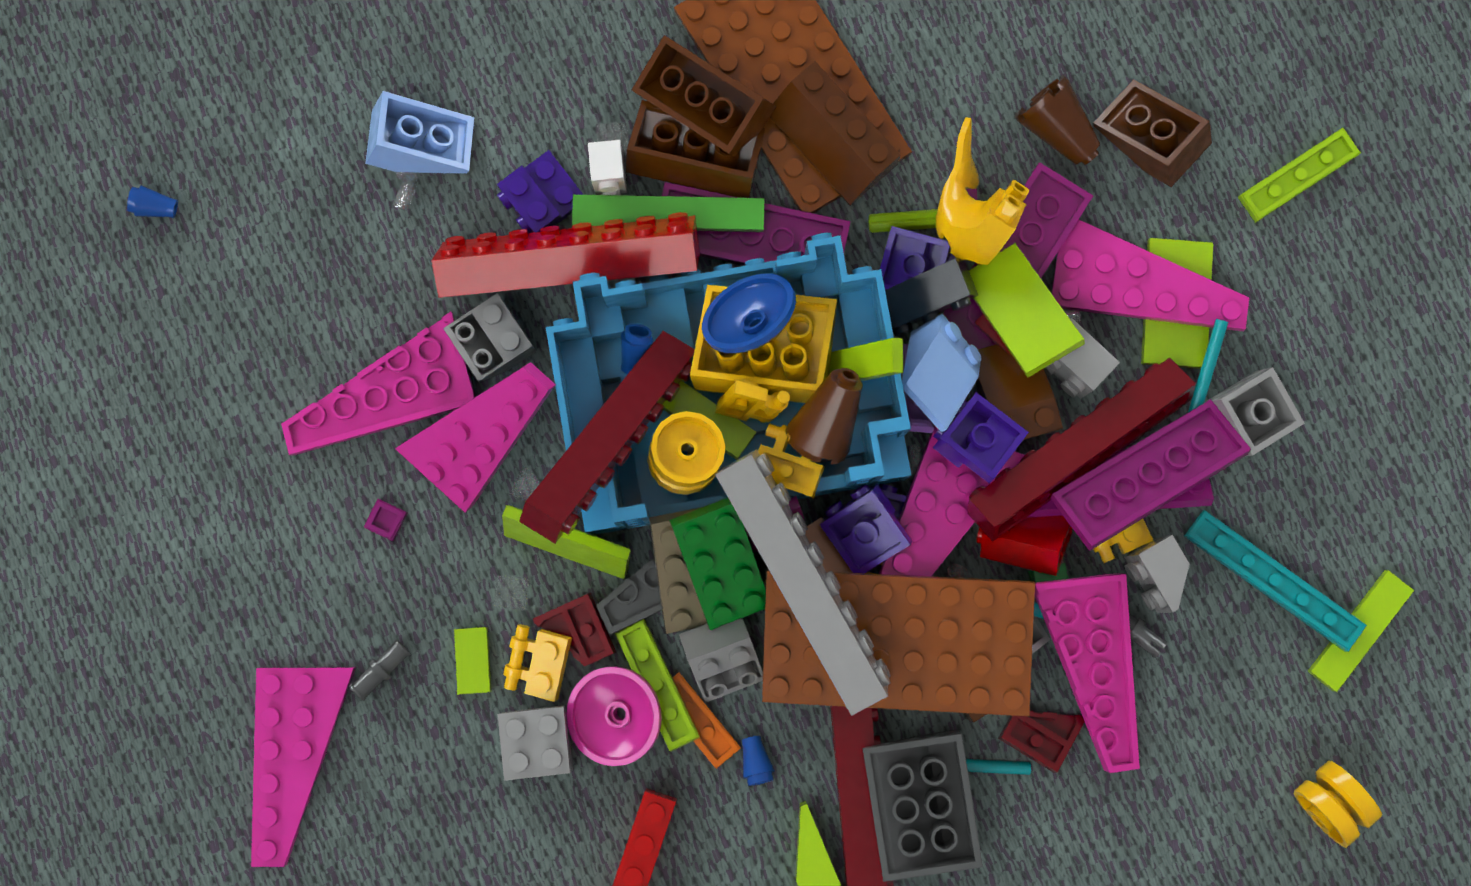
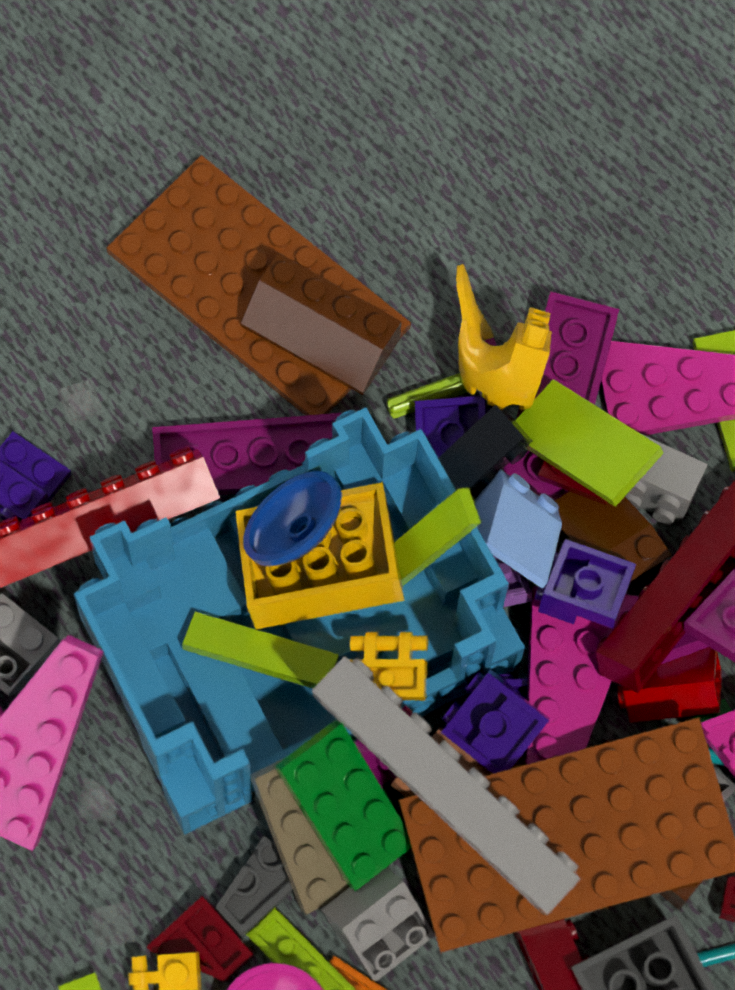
camera: 20 degrees left, 15 degrees down
(576, 547) = (160, 843): lime tile -> none
(607, 167) = (86, 428): white brick -> none
(607, 439) = (180, 691): dark red brick -> none
(634, 343) = (176, 599): blue cone -> none
(676, 154) = (174, 384): reddish brown slope -> none
(702, 97) = (168, 323): reddish brown slope -> none
(704, 450) = (269, 689): yellow wheel -> none
(710, 212) = (216, 443): bright green tile -> none
(749, 400) = (324, 617): yellow plate -> none
(827, 418) = (415, 601): reddish brown cone -> none
(1061, 122) = (560, 248): reddish brown cone -> none
(1155, 132) = (661, 231): reddish brown slope -> none

